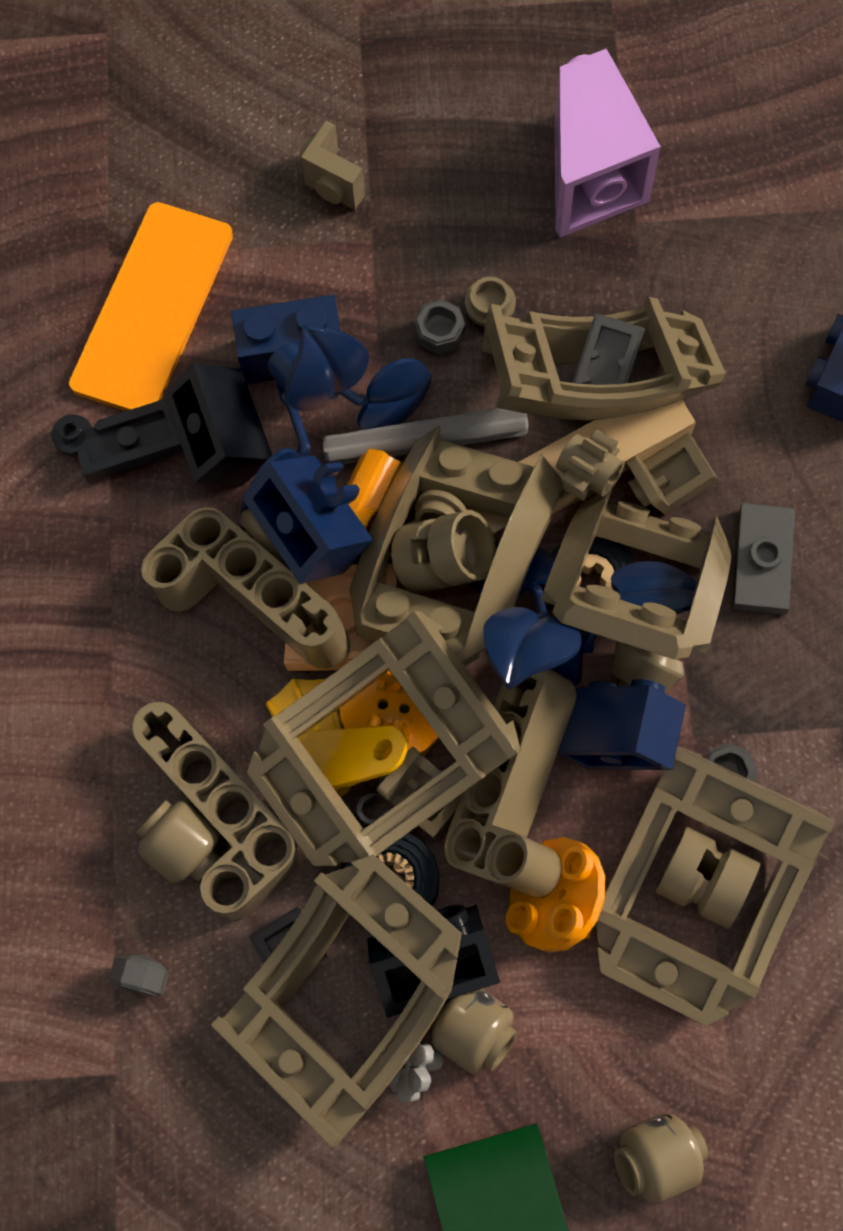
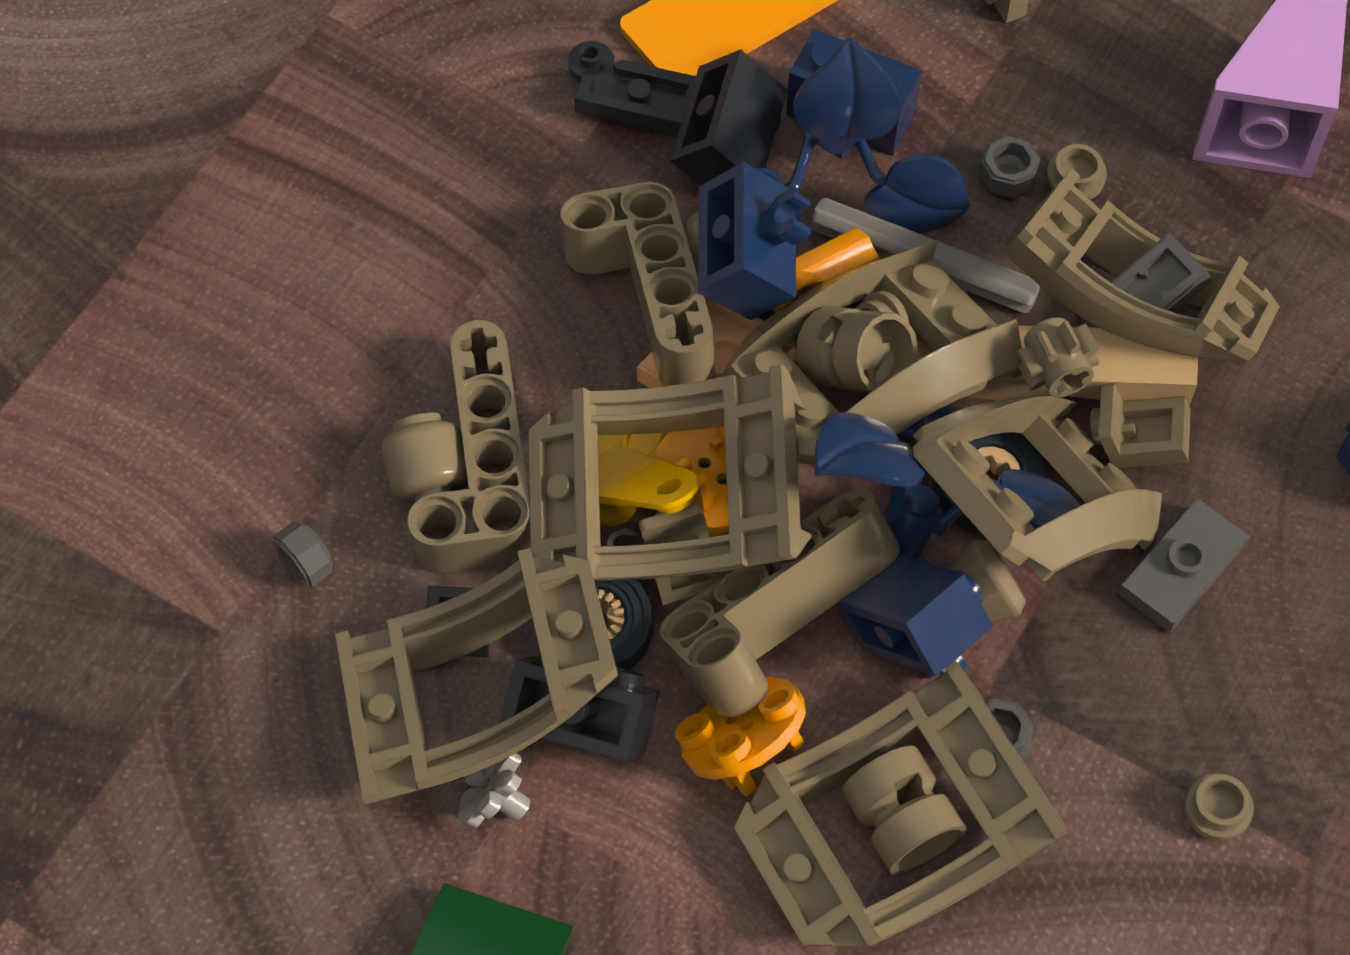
camera: 30 degrees right, 10 degrees down
(474, 1031) = (573, 797): dark tan head -> none

